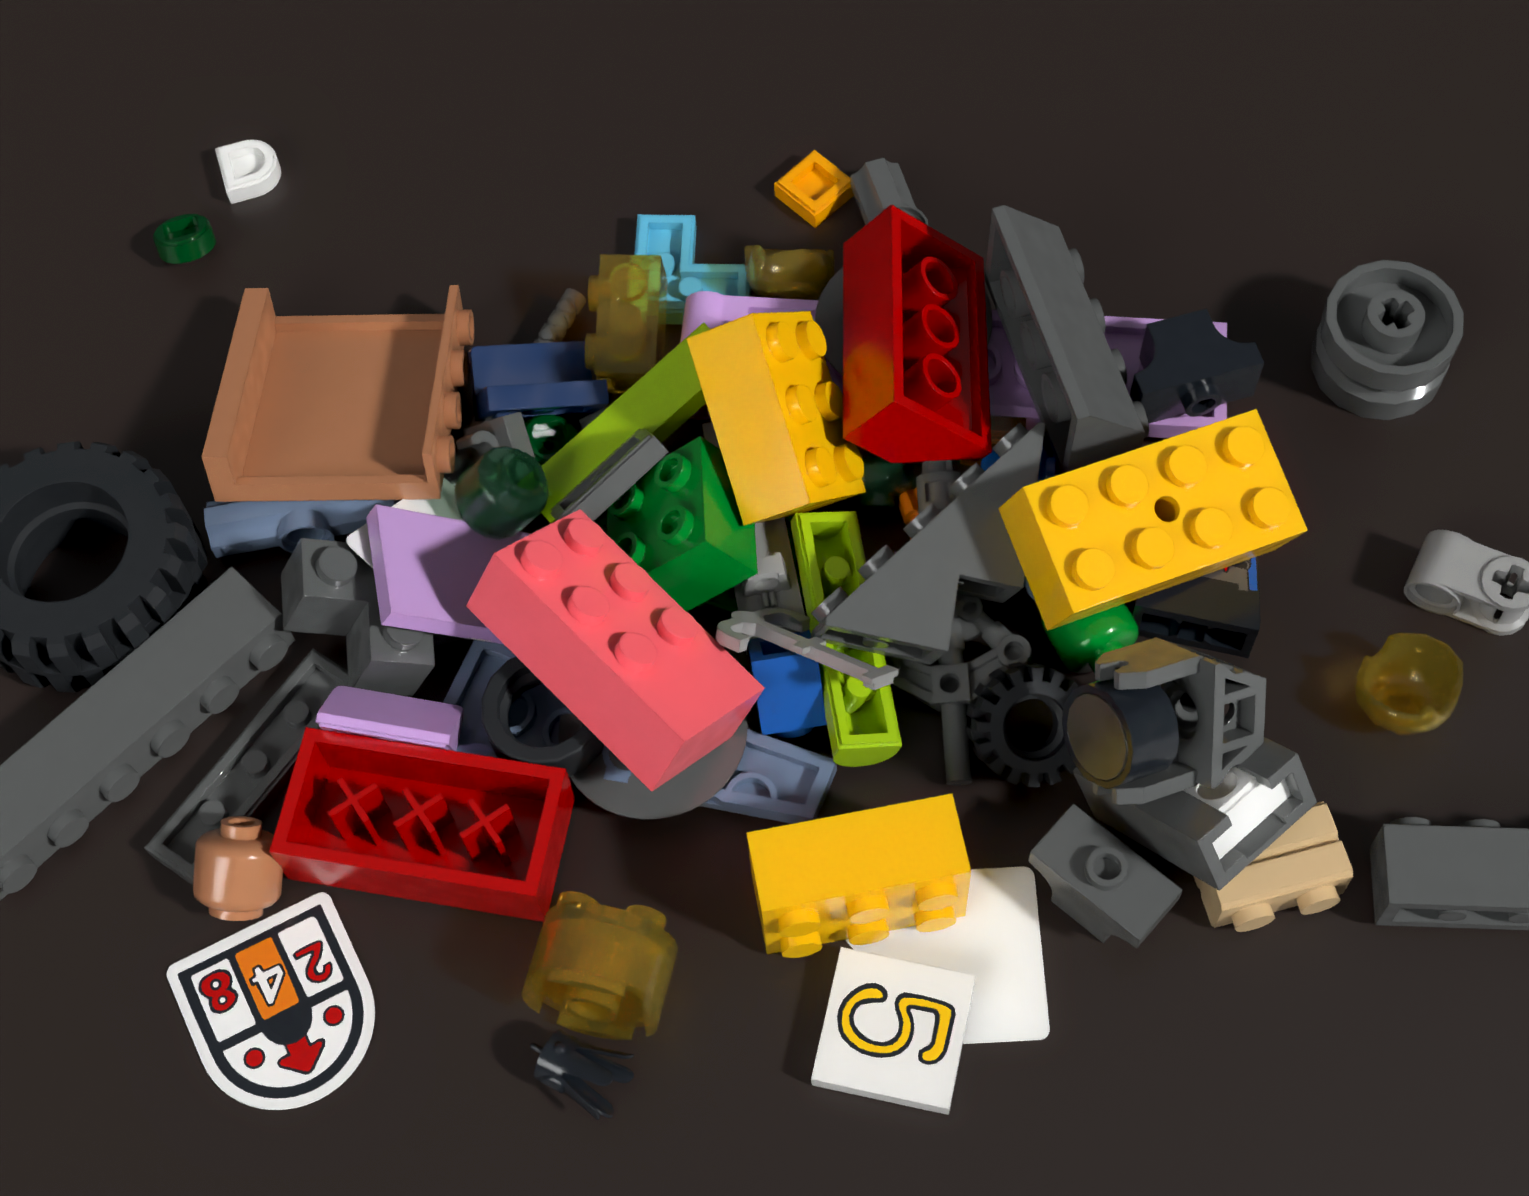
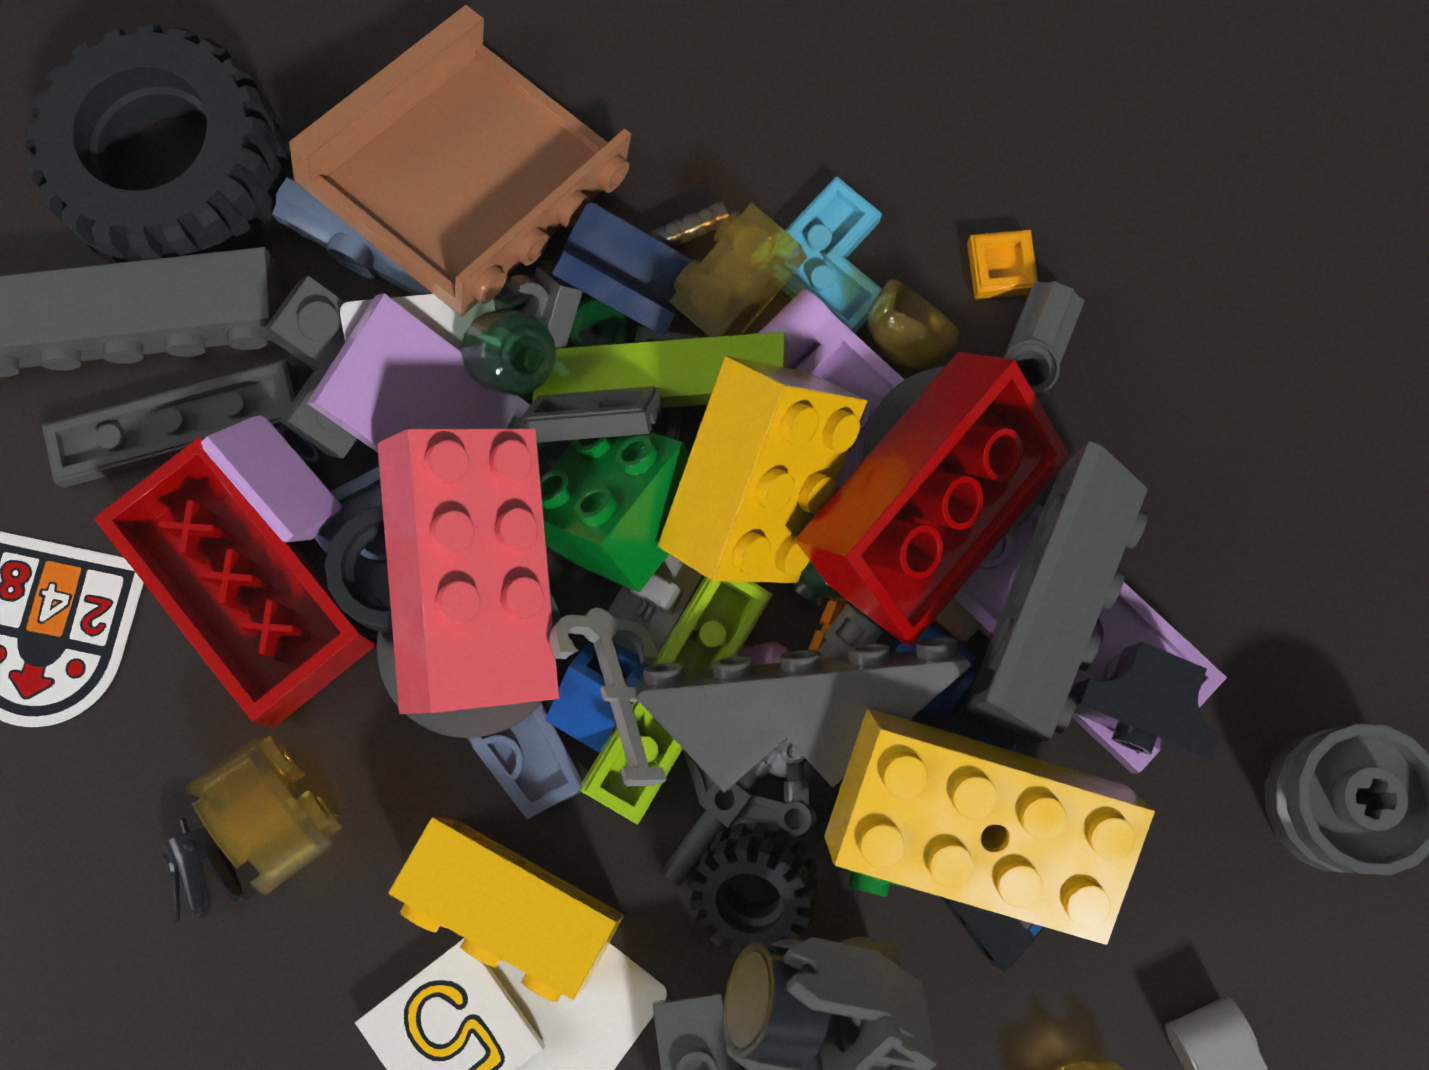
camera: 35 degrees right, 15 degrees up
(236, 870) = (73, 496): nougat head -> none

